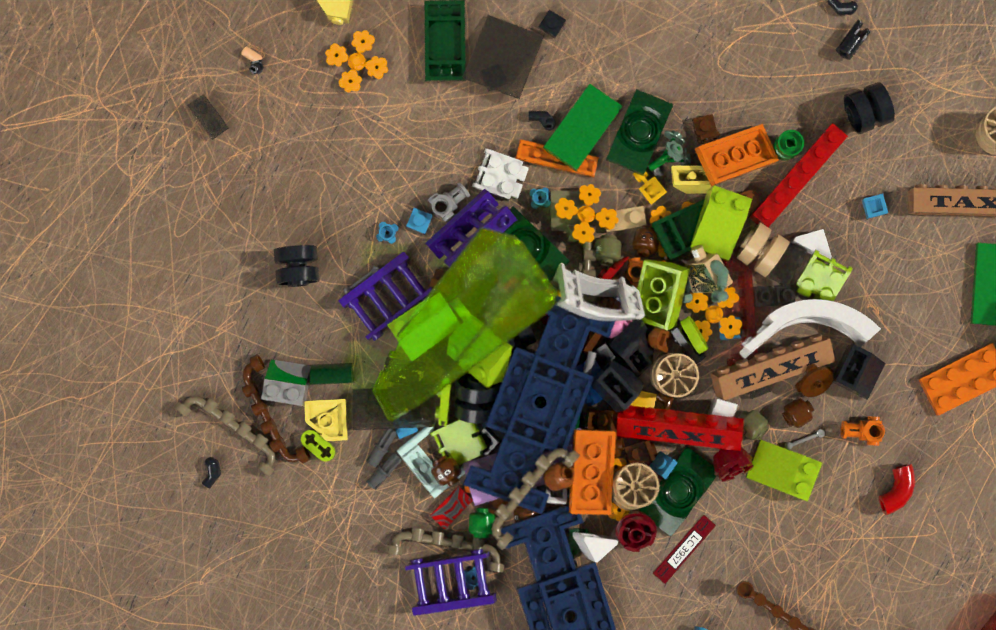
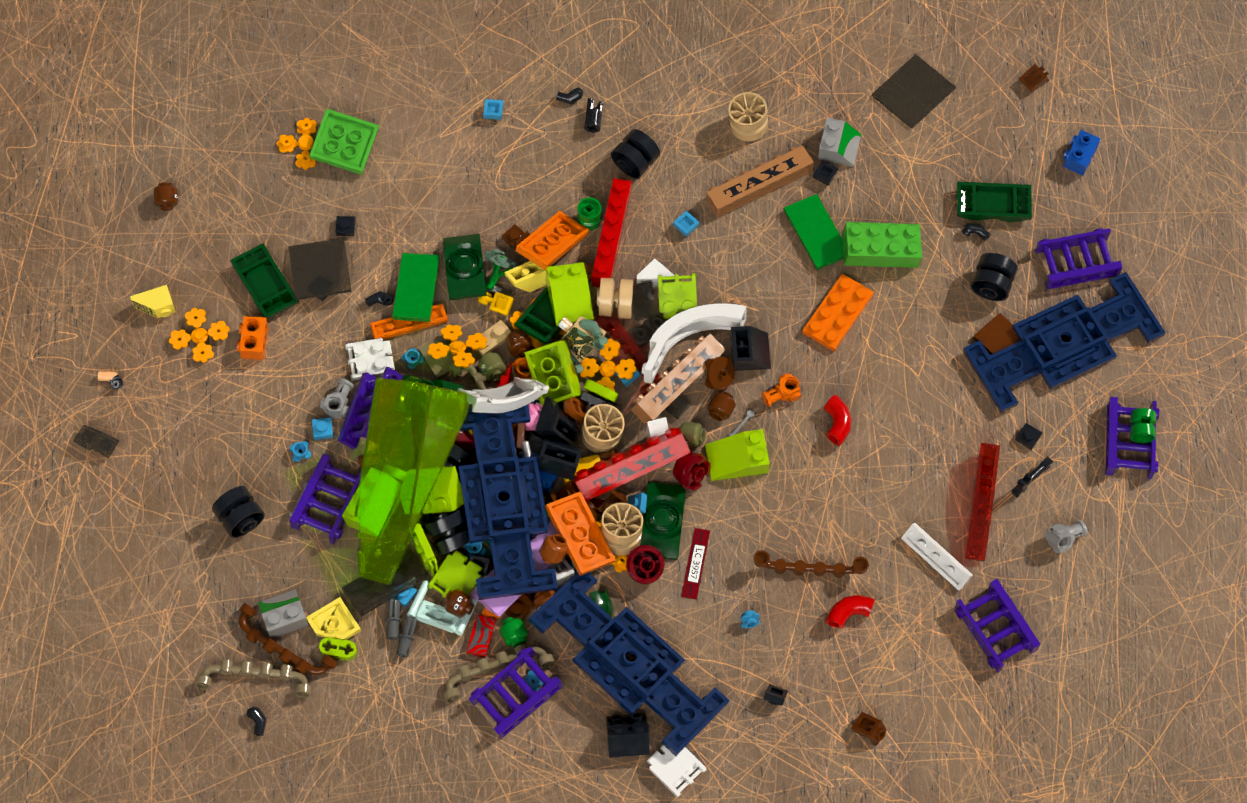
camera: 30 degrees left, 20 degrees down
(331, 373) = (318, 585): dark green brick -> none
(408, 95) = (256, 338): none -> orange brick
(529, 481) = (531, 563): dark tan bar -> none
(594, 546) = (616, 595): white slope -> none

